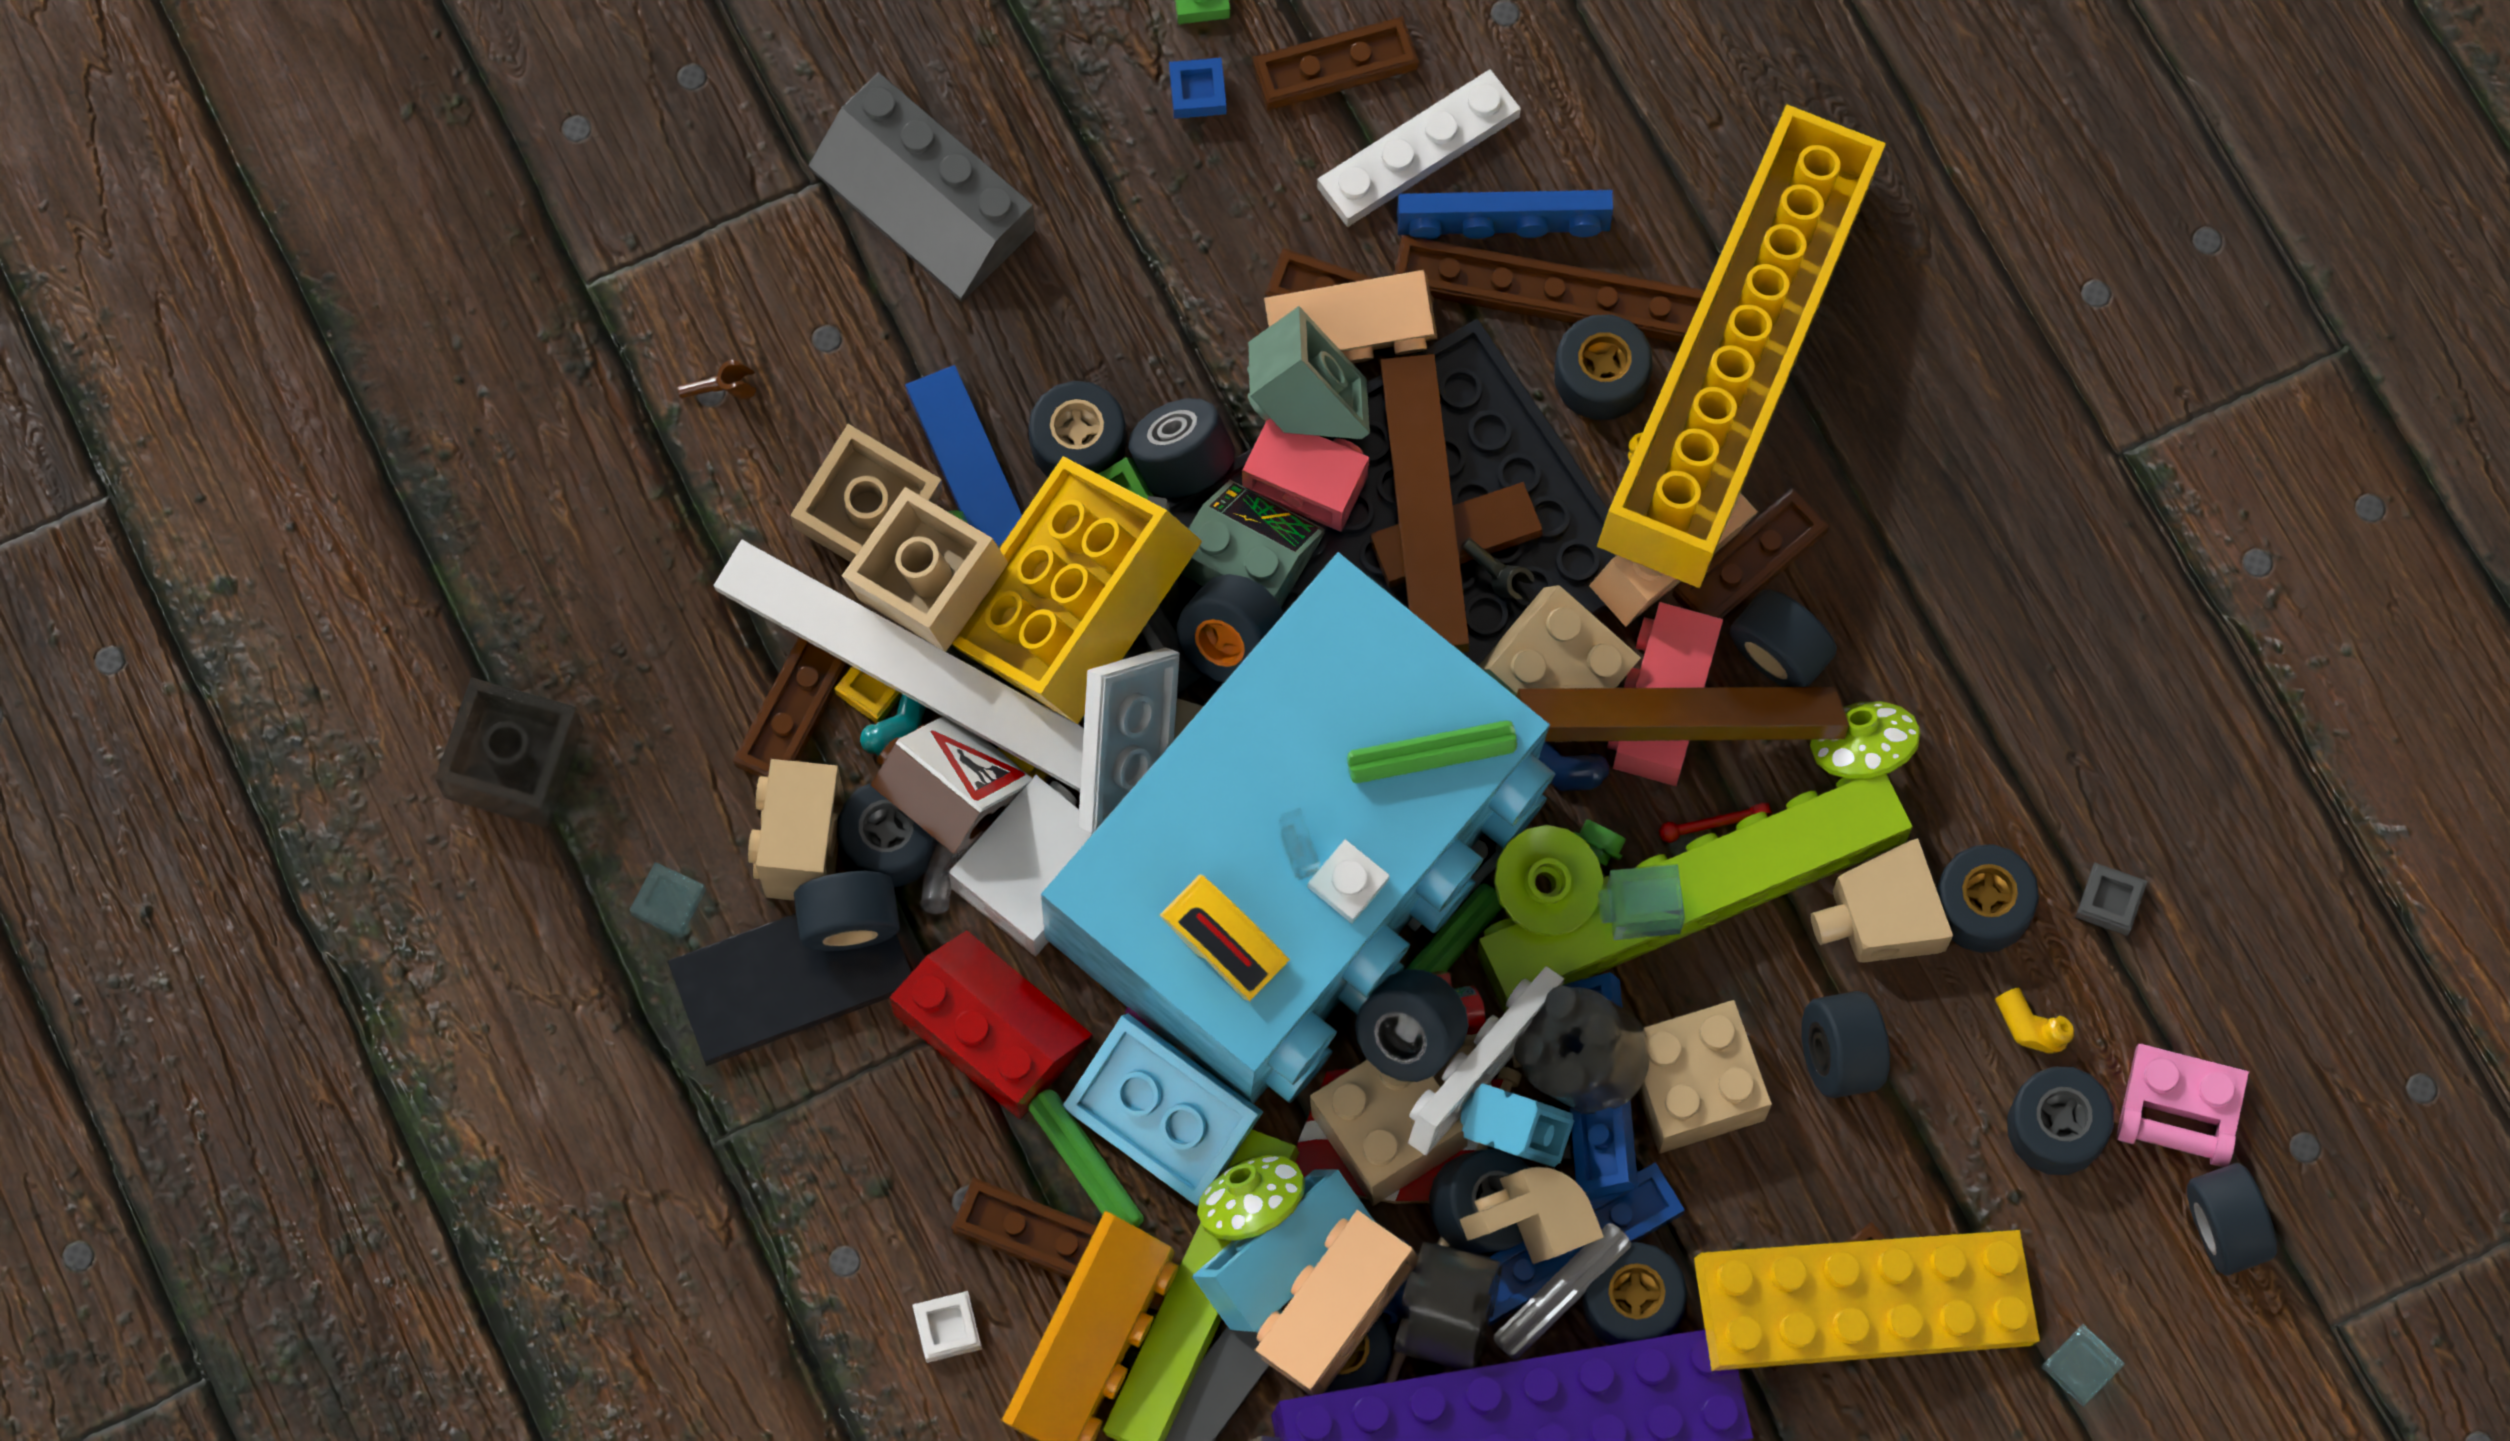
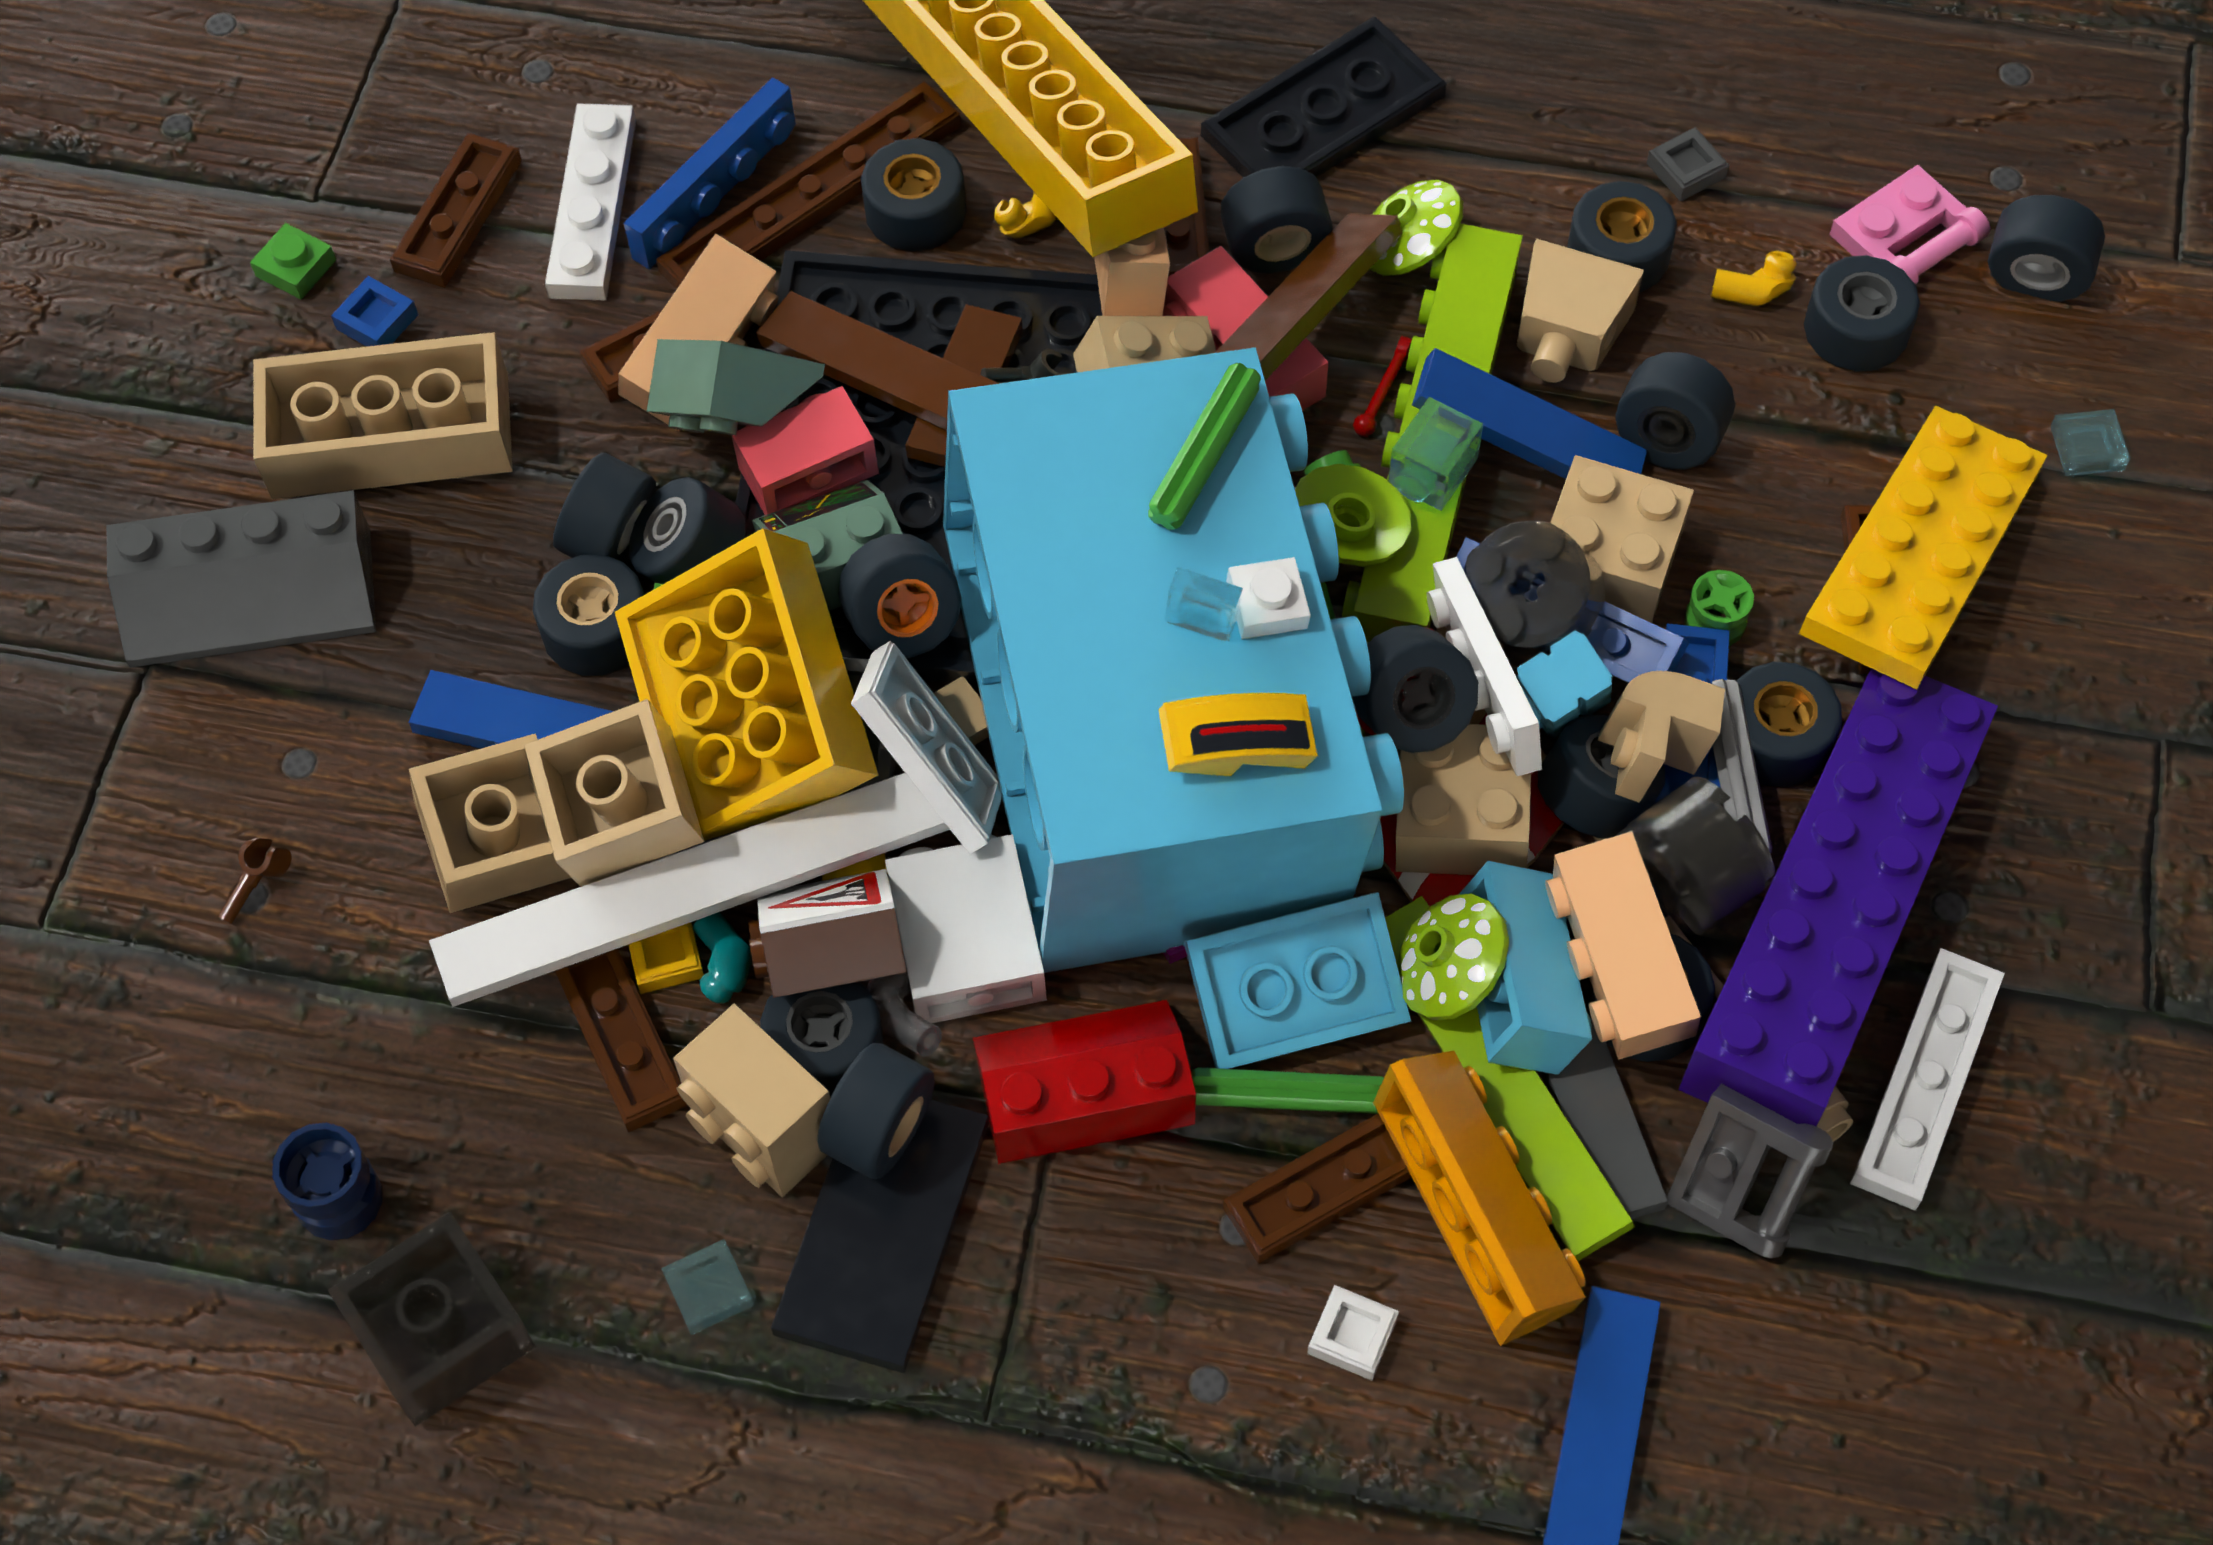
camera: 50 degrees left, 10 degrees down
(549, 613) = (327, 1181): none -> dark blue wheel
(1114, 168) = (381, 415): none -> tan brick
(1155, 376) = (602, 508): none -> black wheel
(1708, 1180) = (1722, 593): none -> bright green wheel
(1741, 948) = (1522, 420): none -> blue tile
(1938, 596) = (1326, 104): none -> black tile

